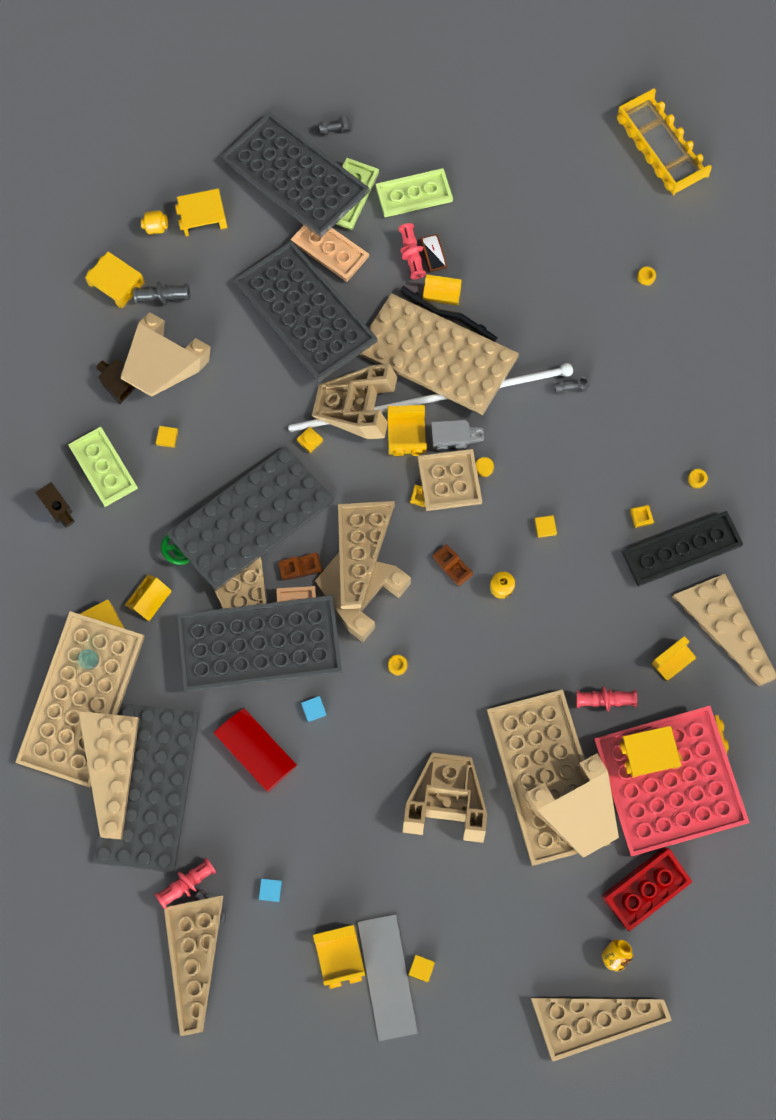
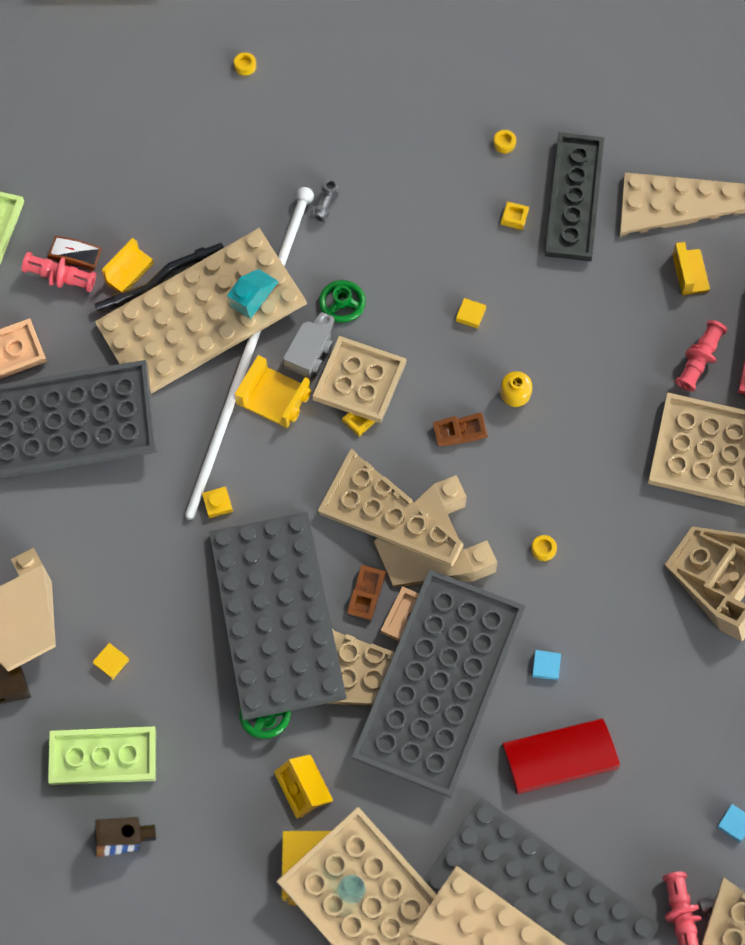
camera: 60 degrees left, 5 degrees down
(351, 400) = (200, 434): tan wedge -> none
(464, 373) = (251, 292): none -> teal slope
(484, 467) = (366, 335): yellow tile -> none
(502, 431) = (342, 290): none -> green piece

